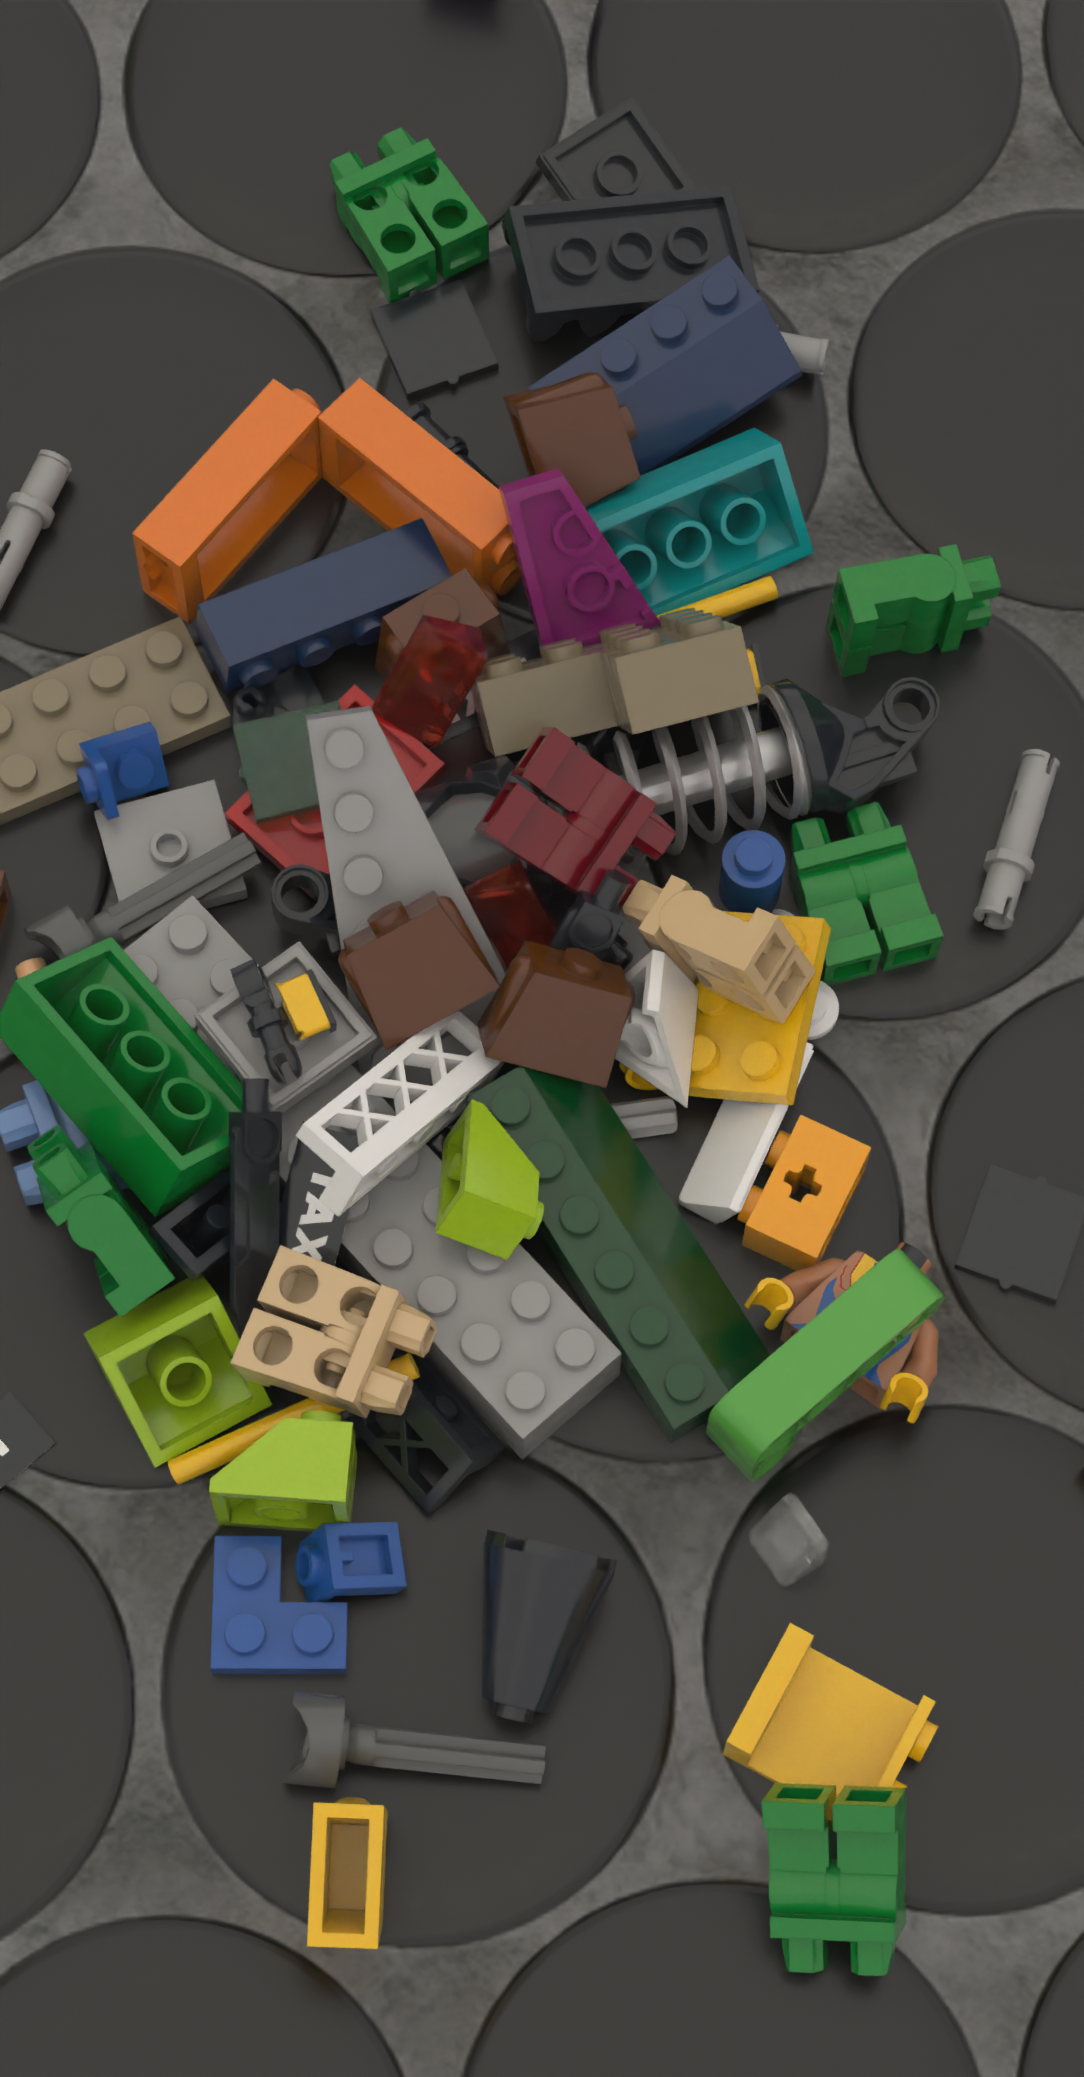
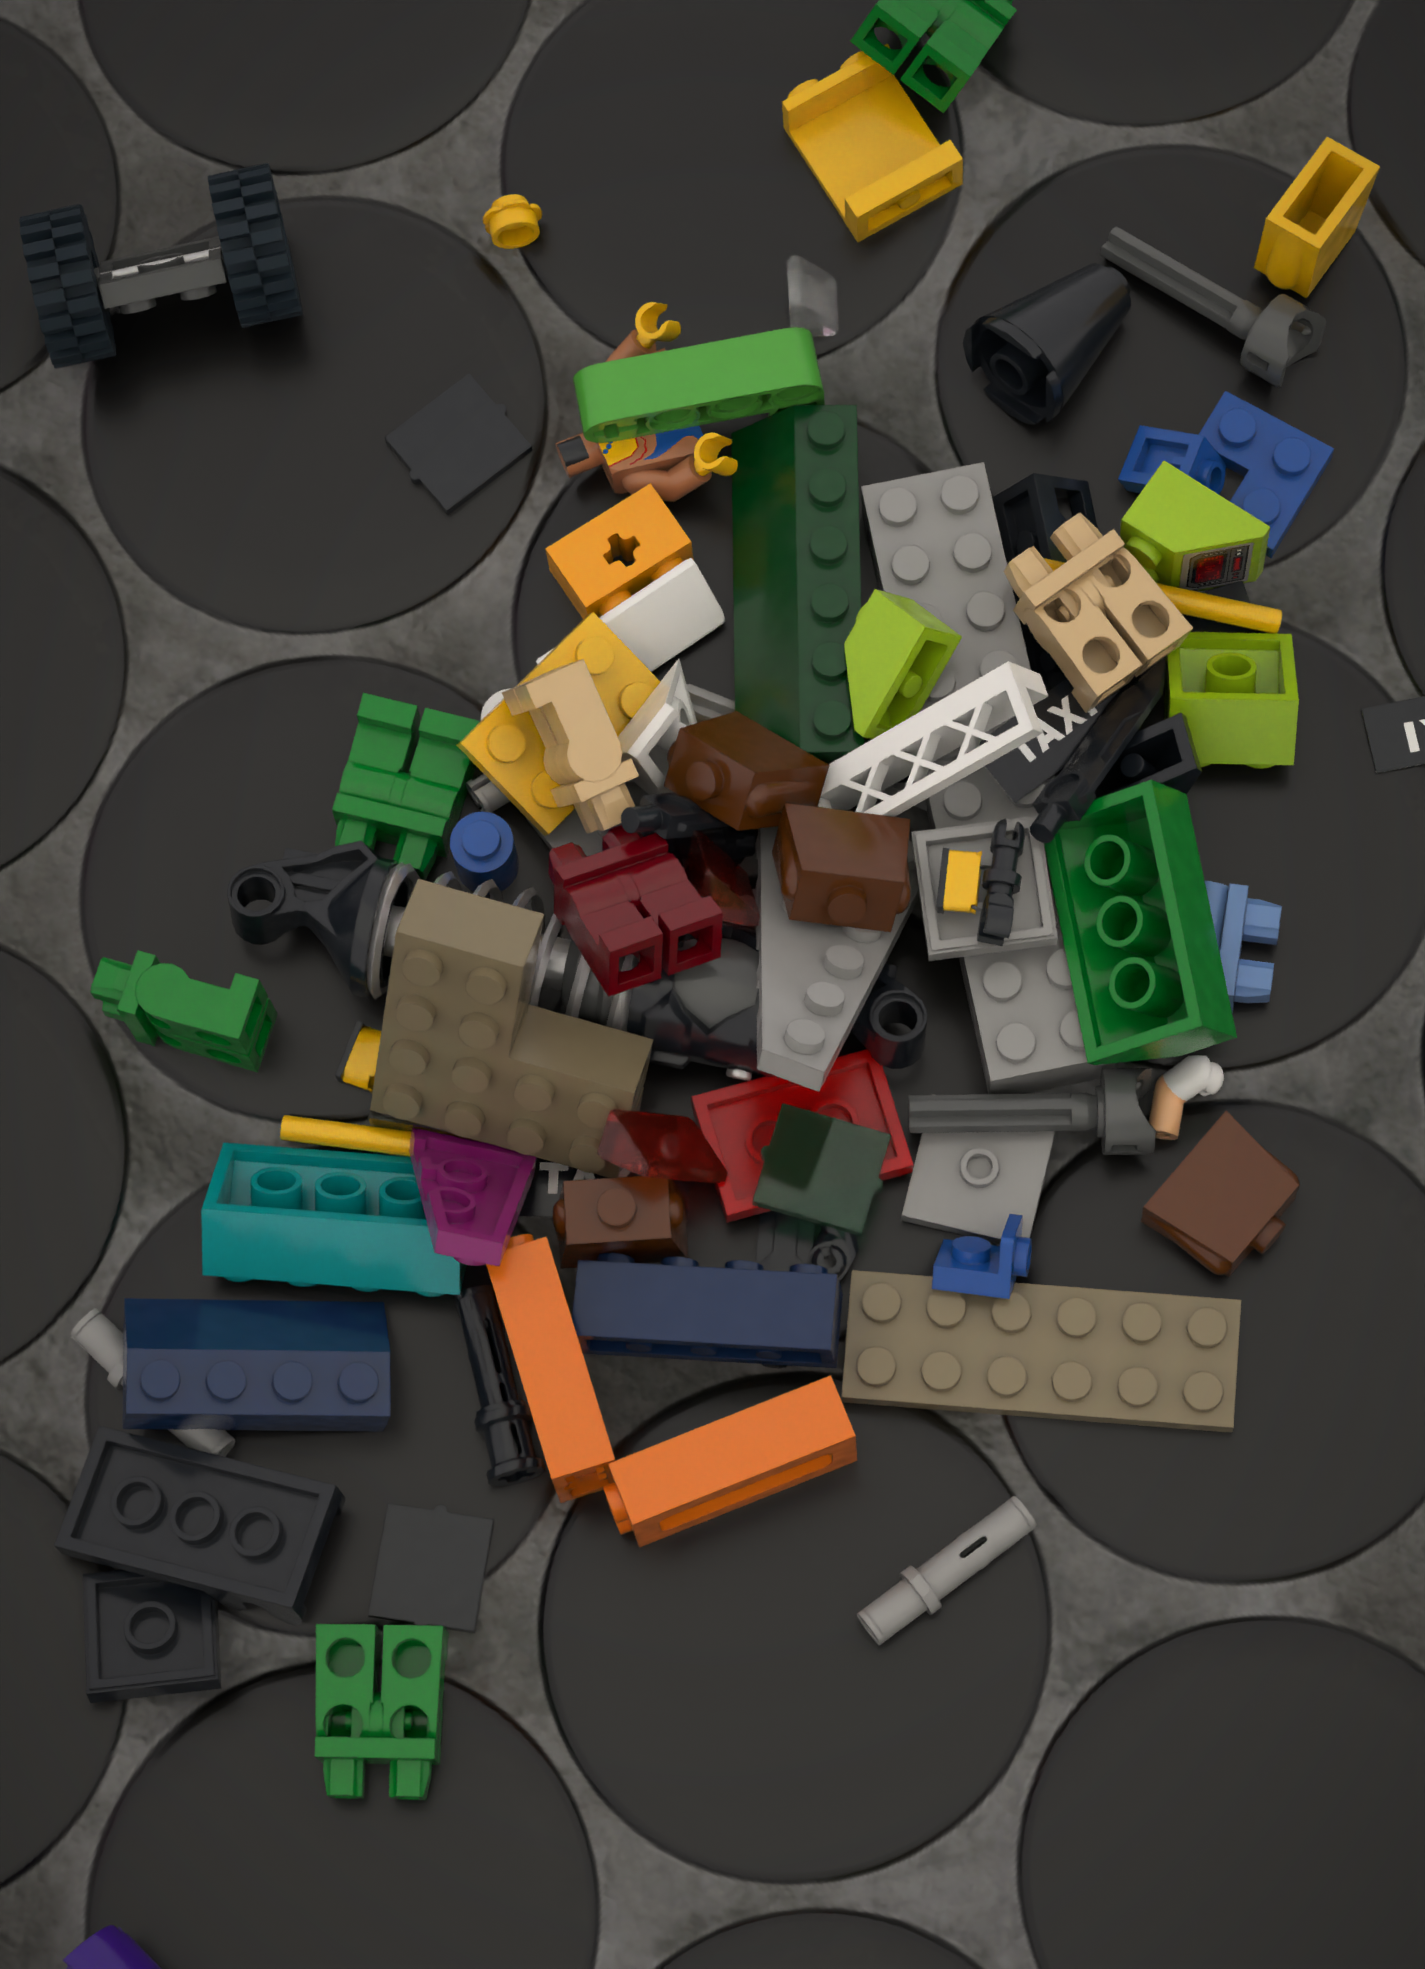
camera: 140 degrees left, 5 degrees up
(99, 1219) = (1235, 816): green hips -> none
(578, 432) = (387, 1320): reddish brown torso -> none
(1011, 859) = (231, 767): light grey pin -> none

